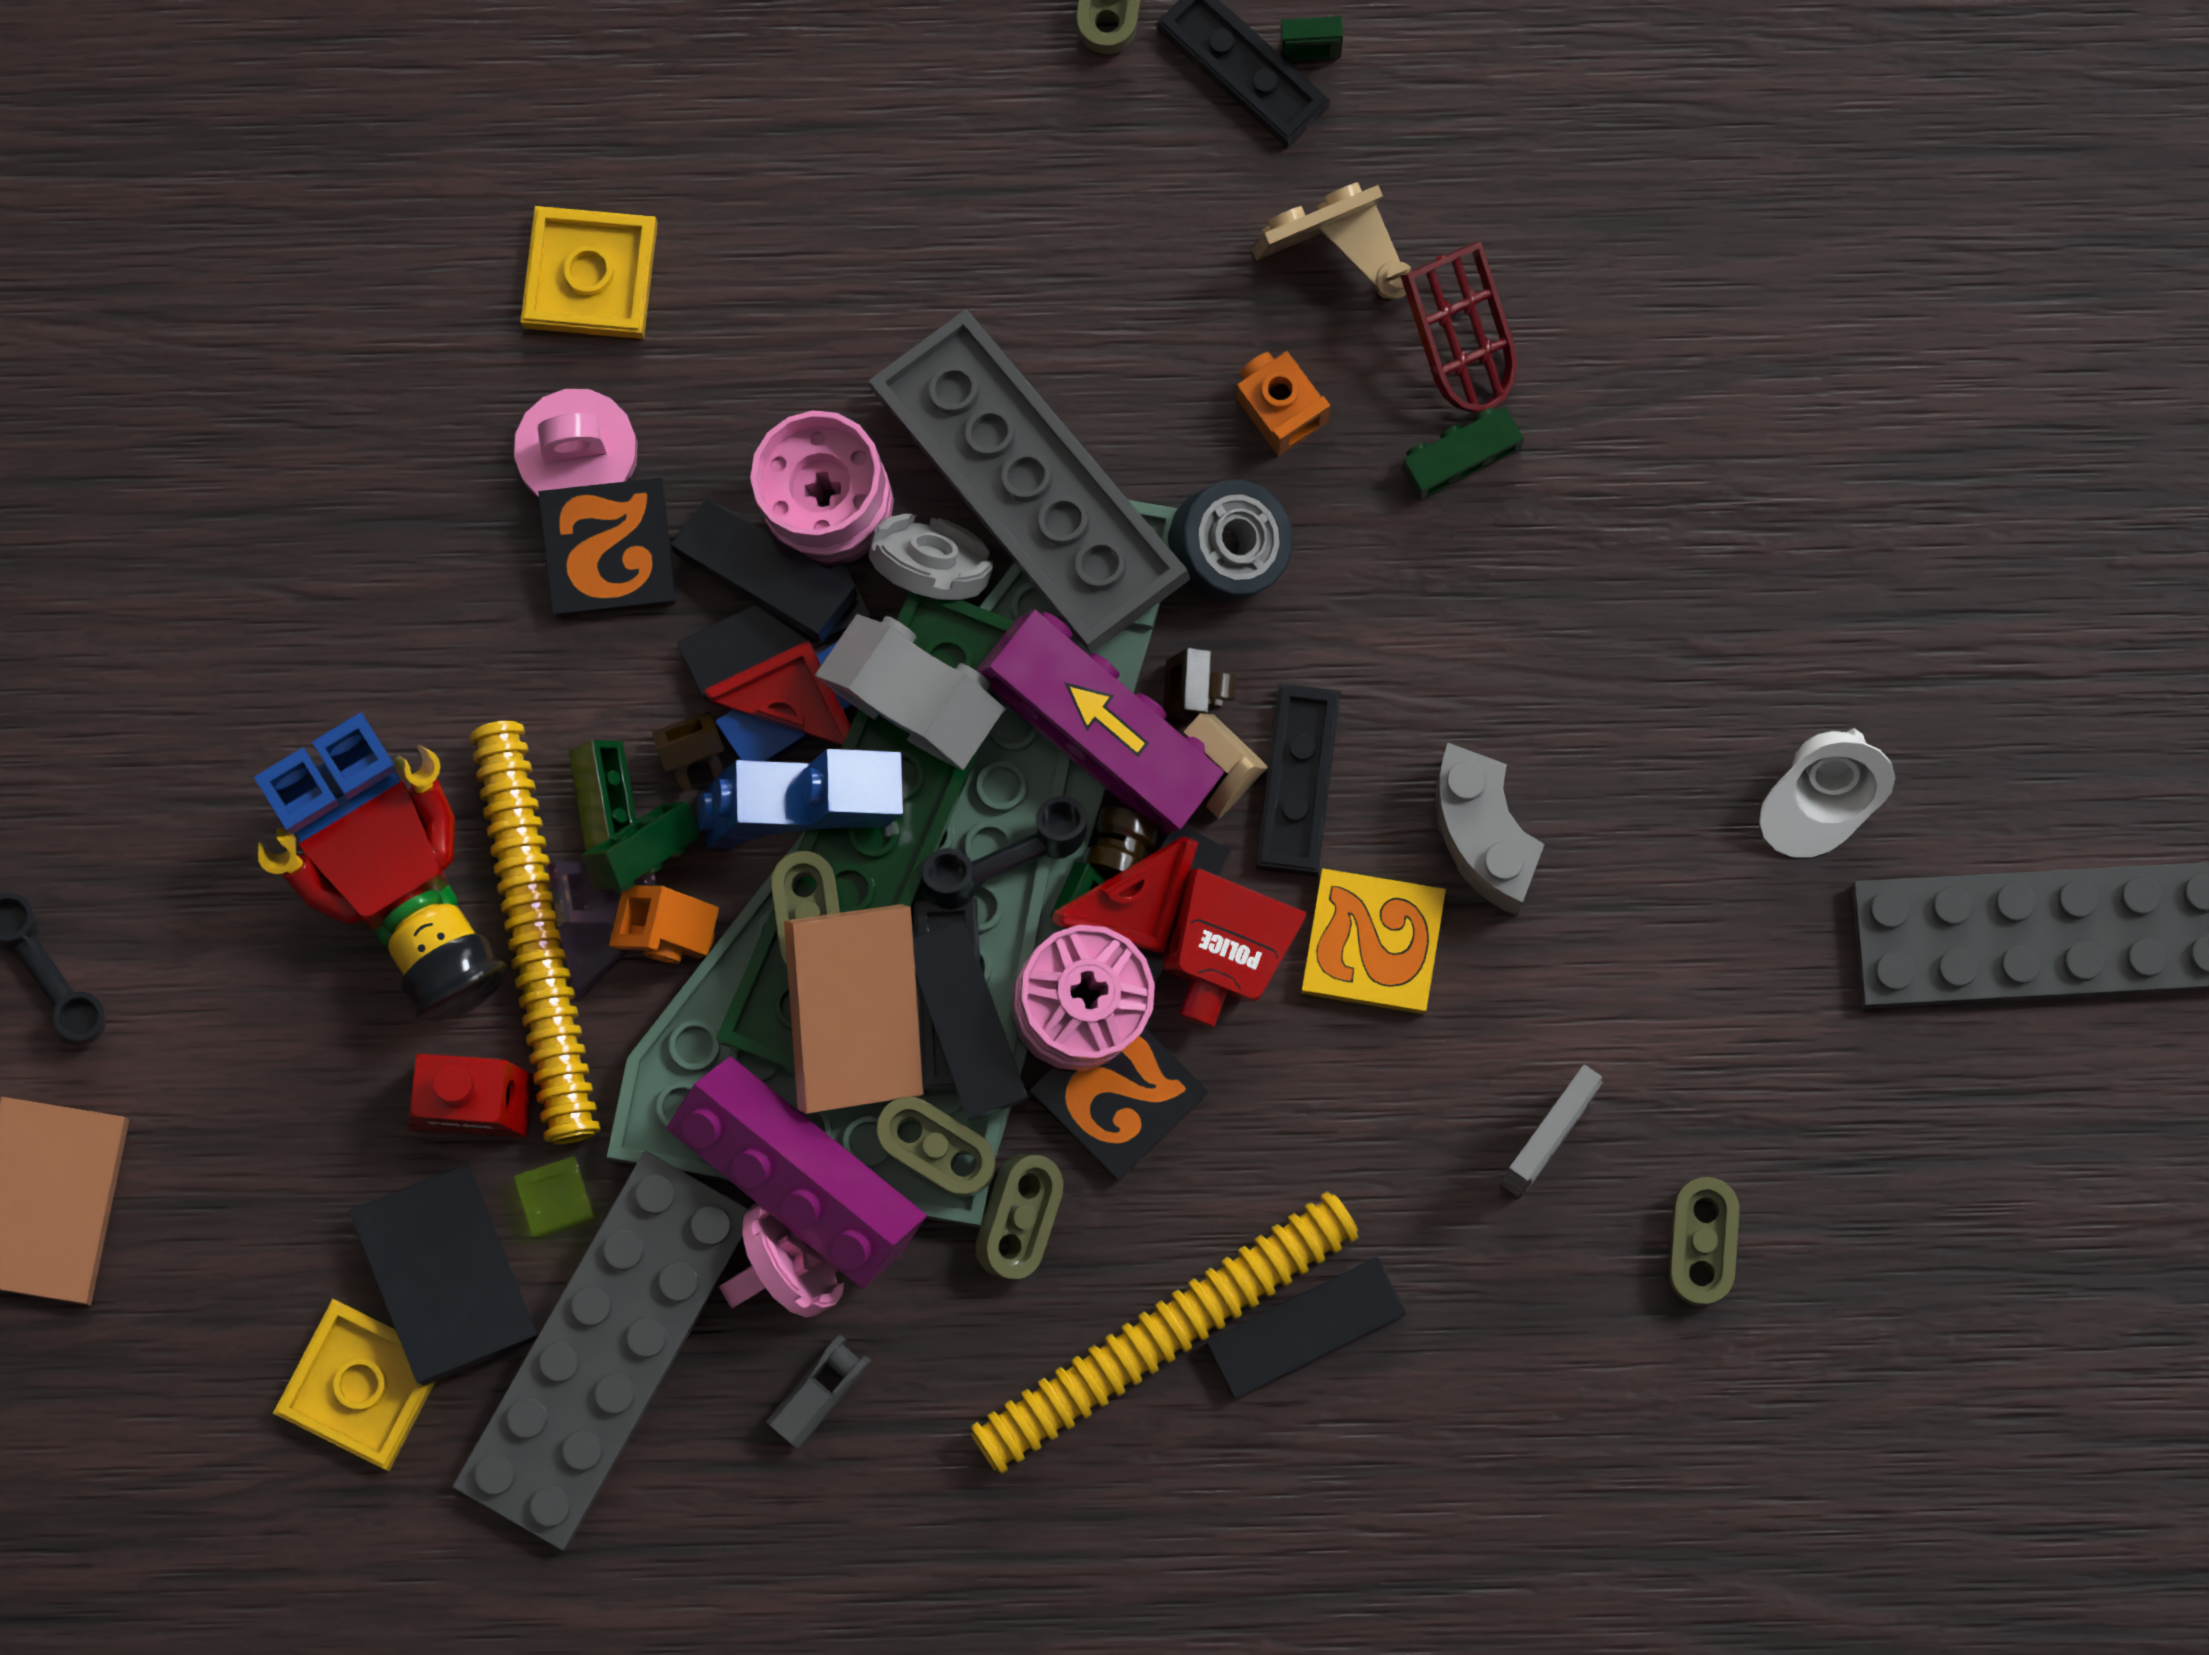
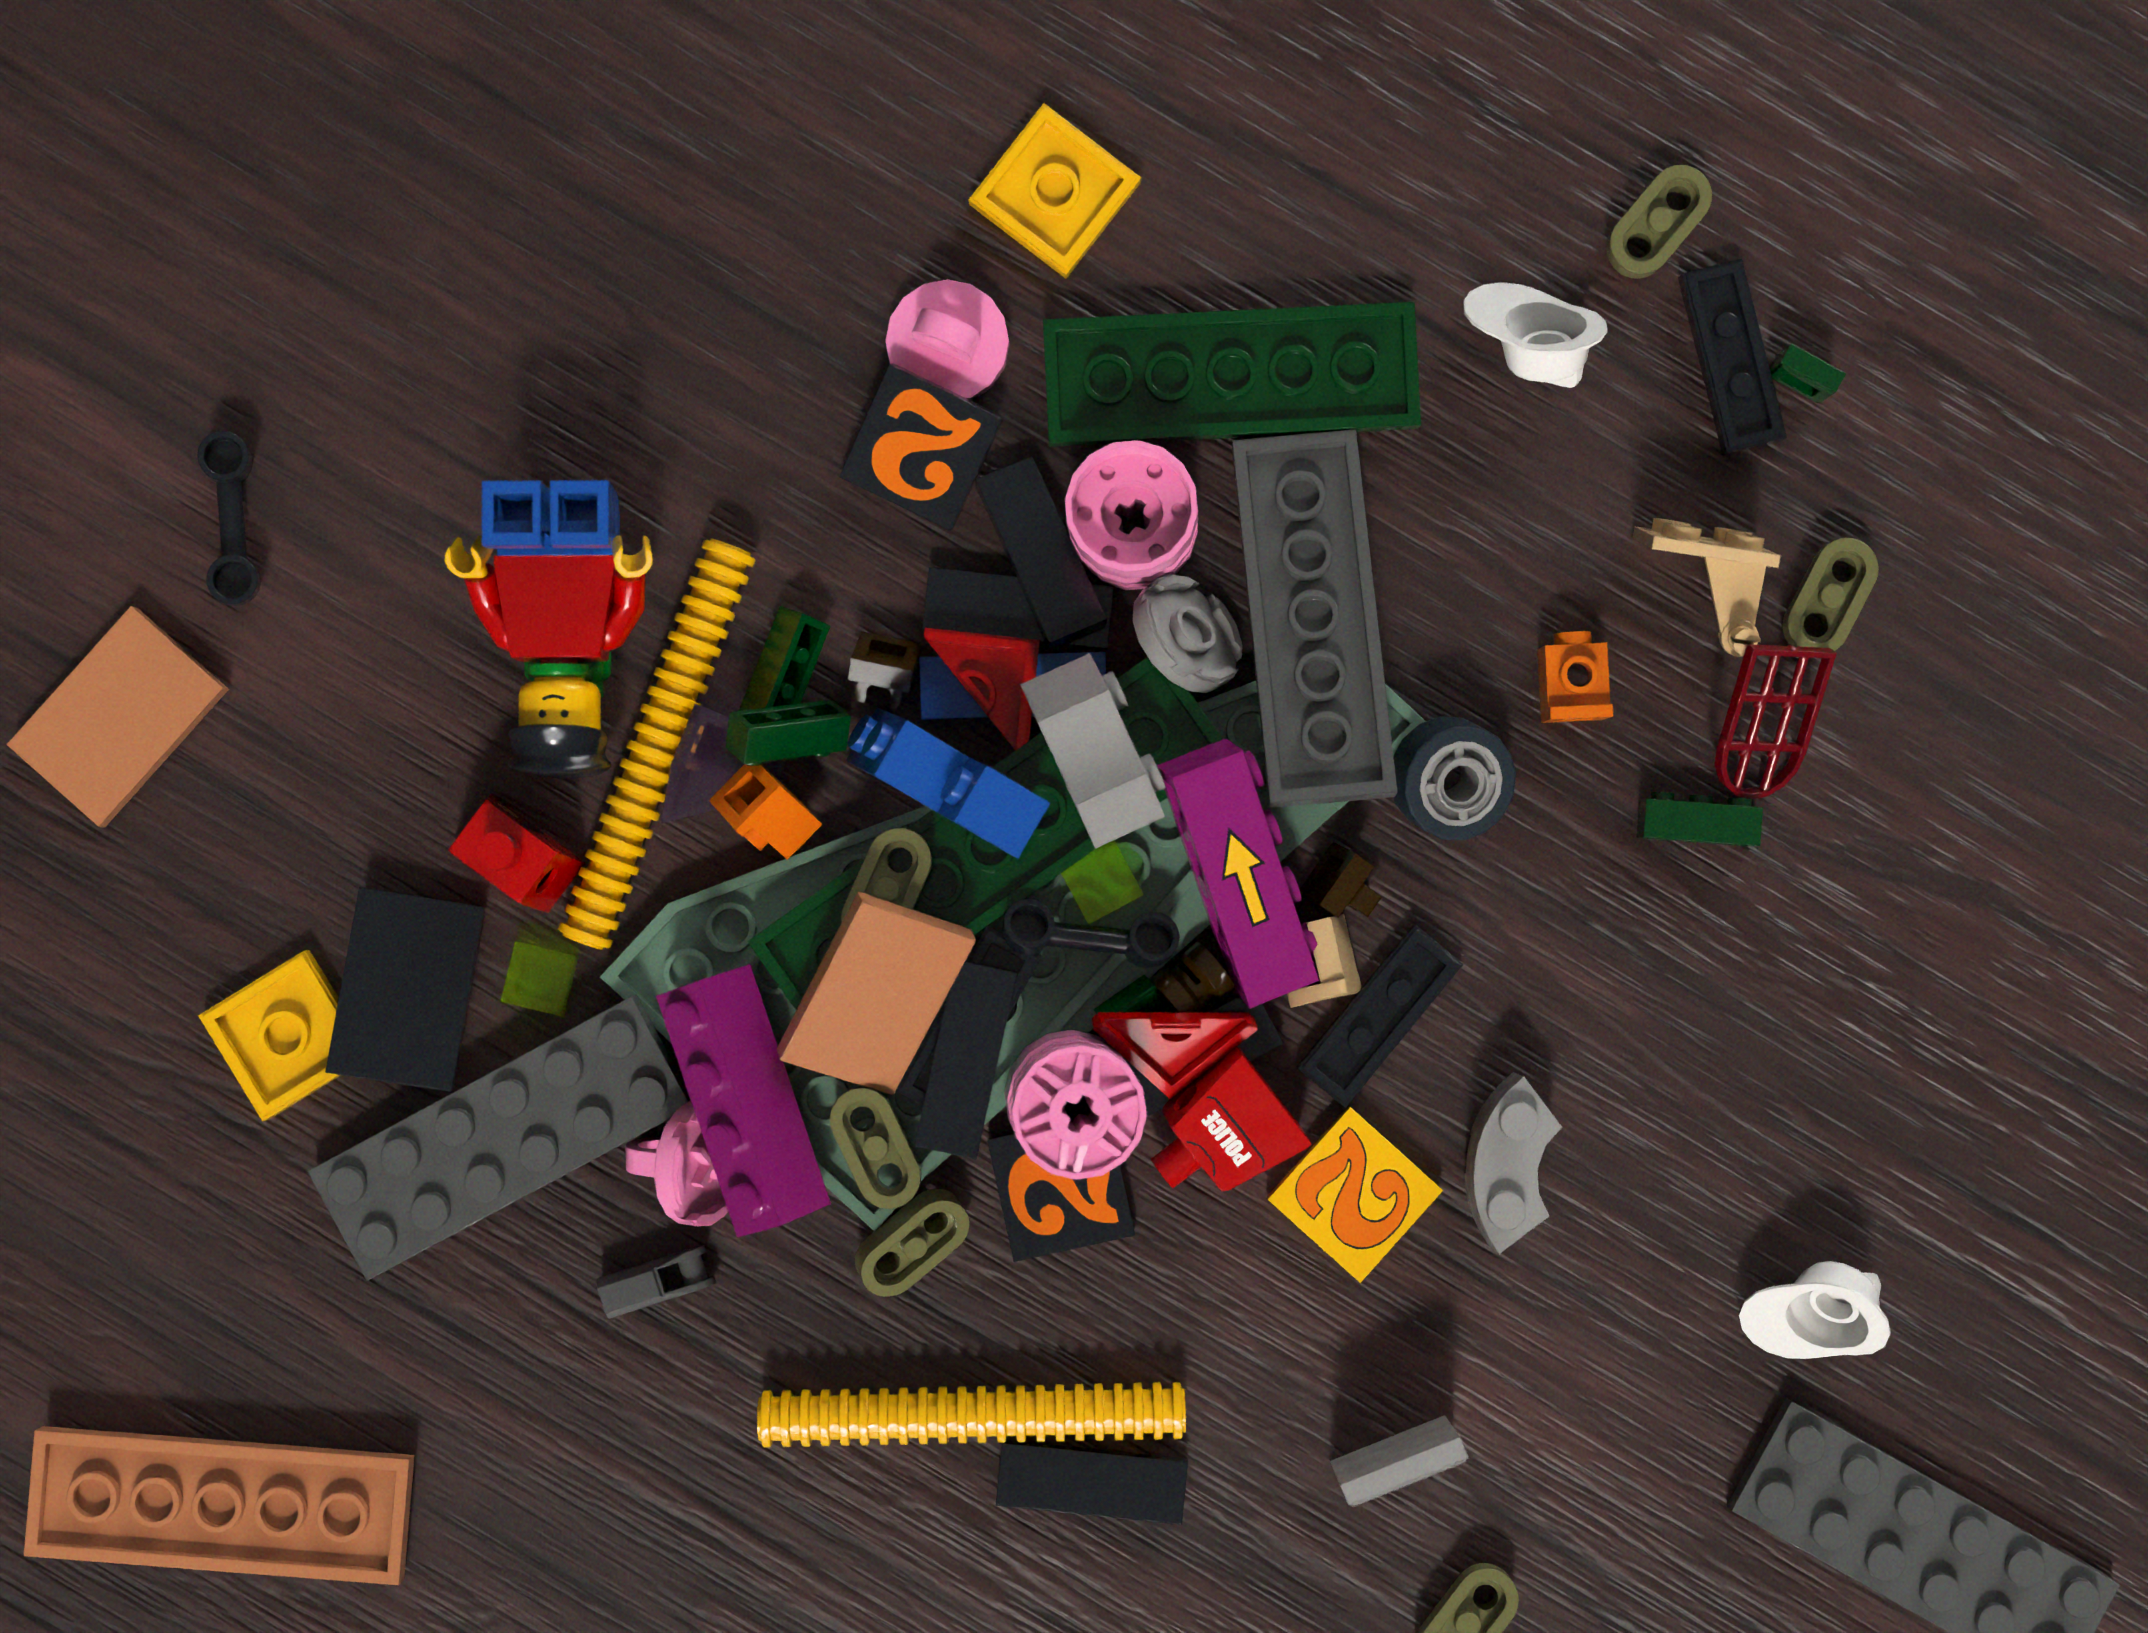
camera: 30 degrees right, 10 degrees up
(832, 327) = (1231, 374): none -> dark green plate
(989, 807) = (1102, 882): none -> clear neon green tile
(1069, 140) = (1538, 332): none -> white piece
(1449, 208) = (1827, 598): none -> olive plate

